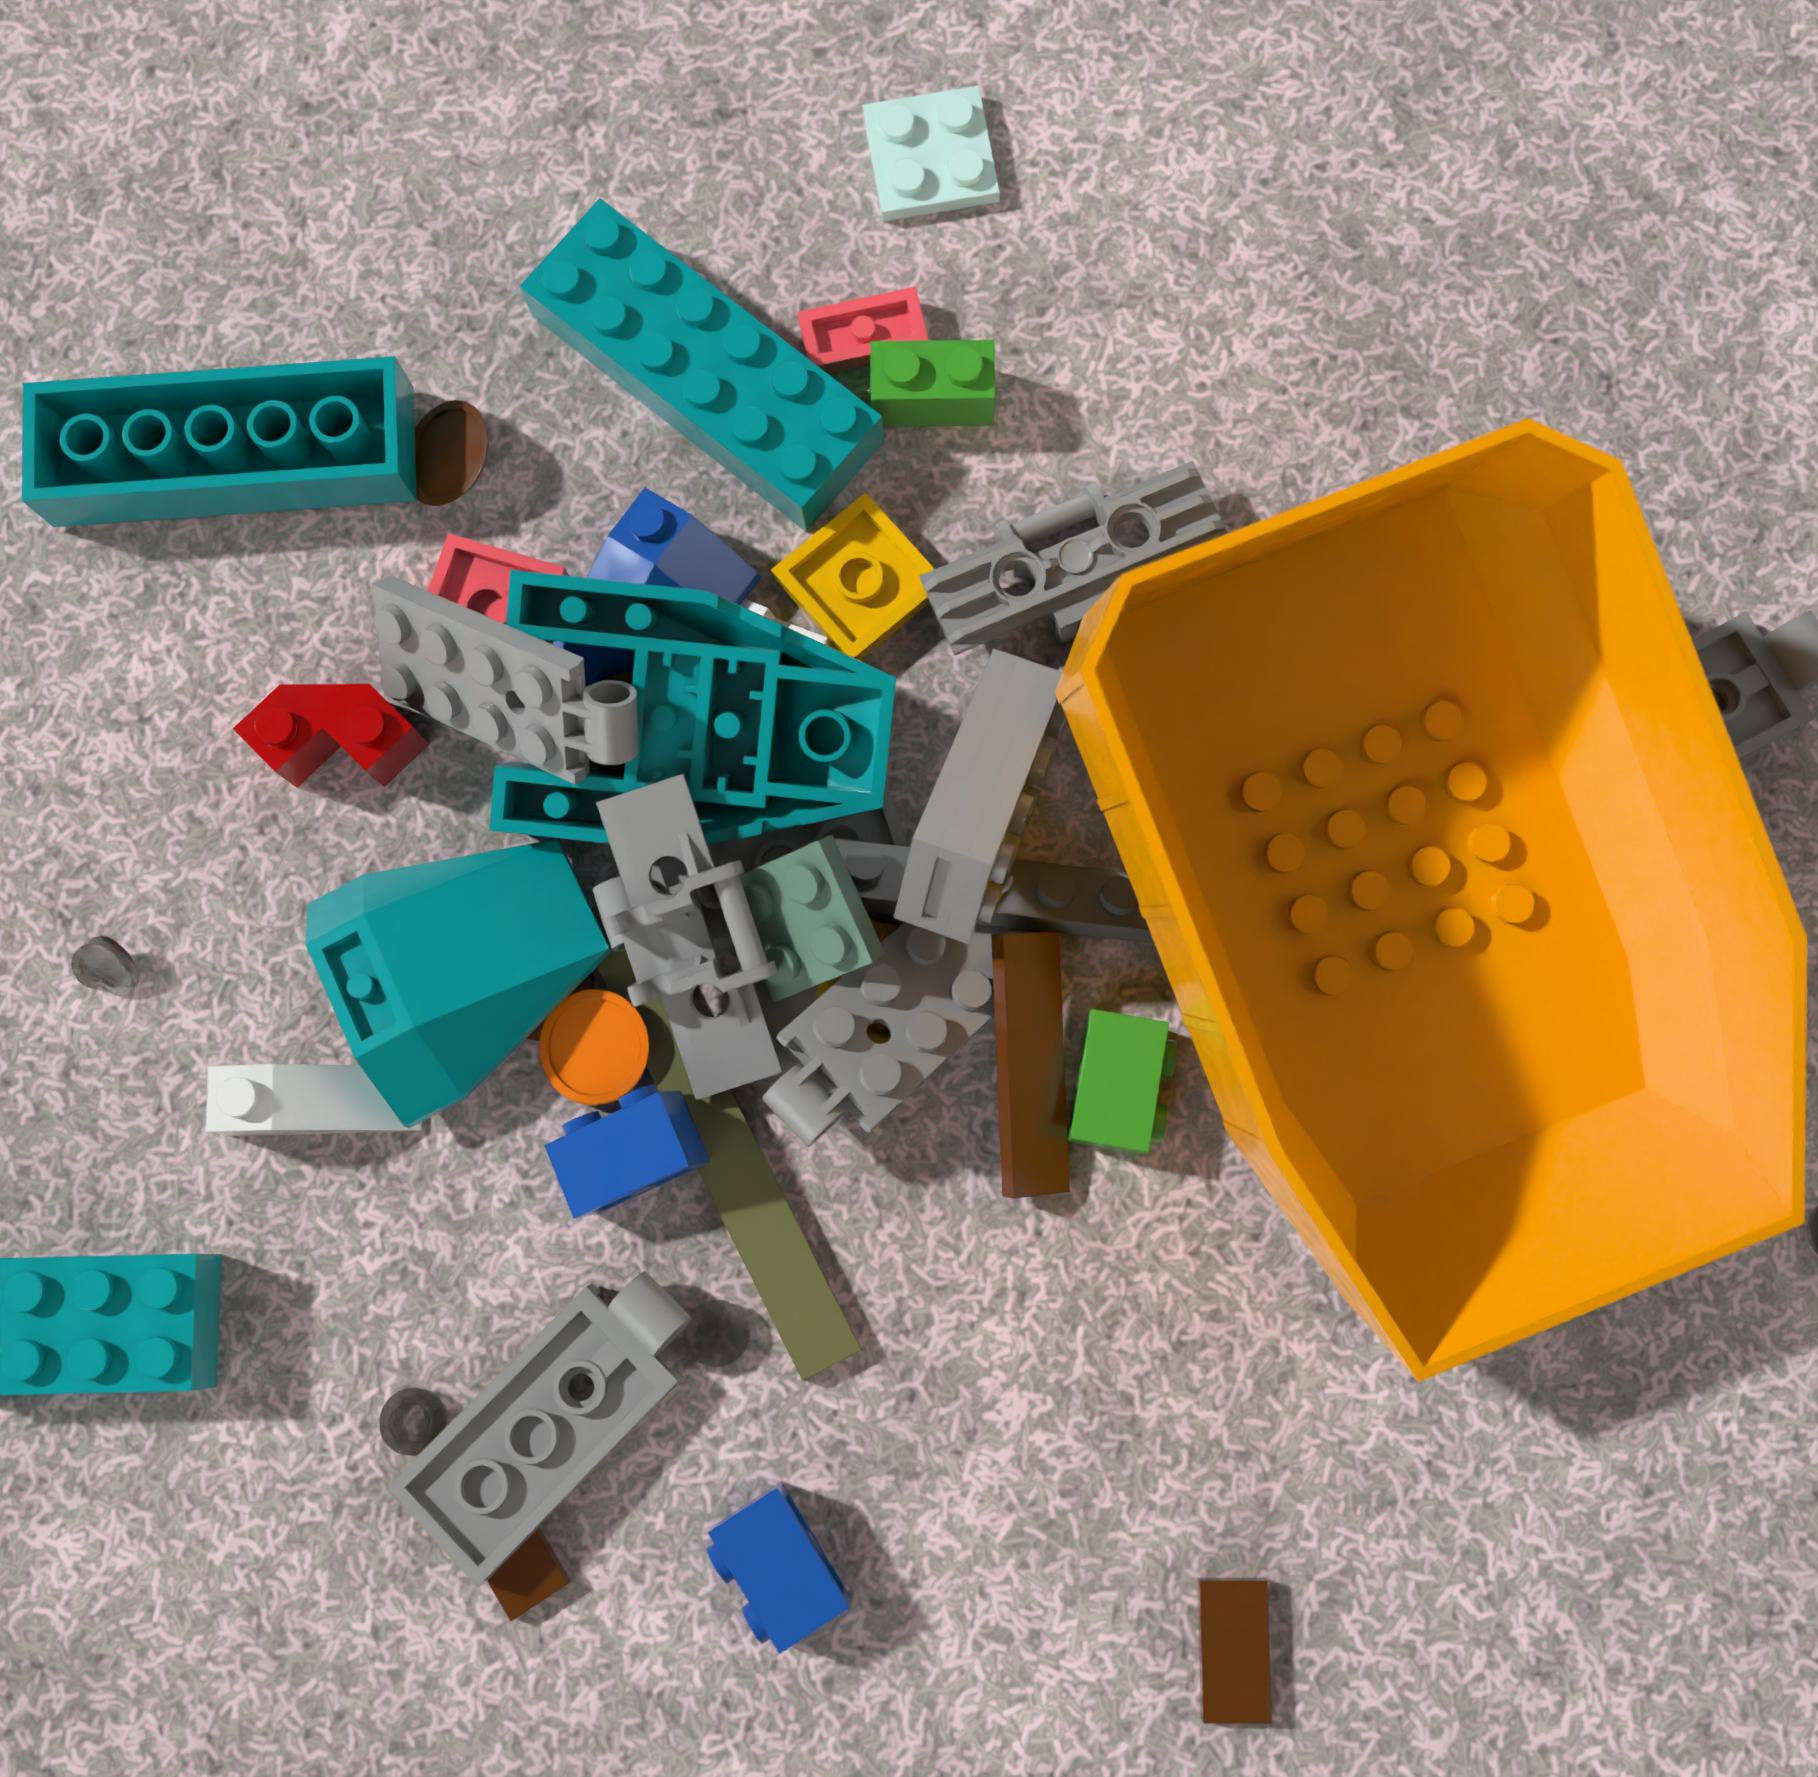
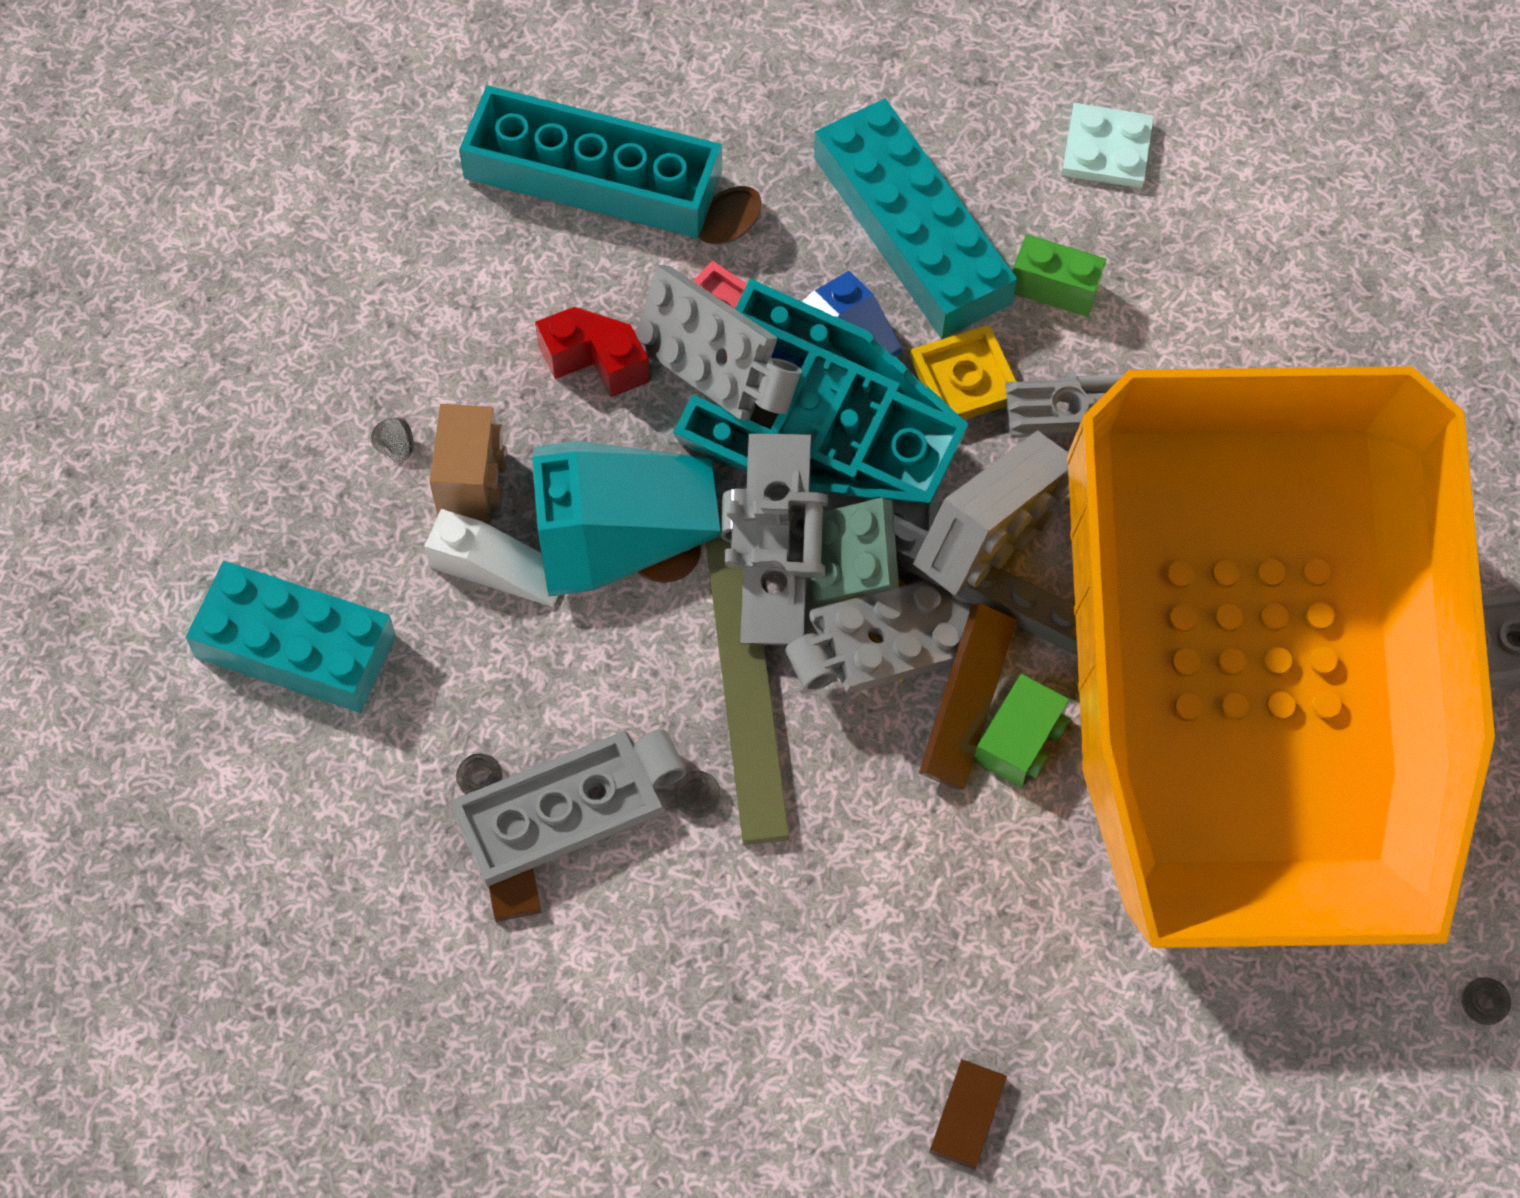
camera: 15 degrees right, 15 degrees down
(217, 980) = (468, 461): none -> medium nougat brick
(594, 1047) = (685, 591): orange piece -> none
(627, 1151) = (683, 657): blue brick -> none
(778, 1569) = (683, 944): blue brick -> none
(841, 333) = (1008, 228): coral plate -> none

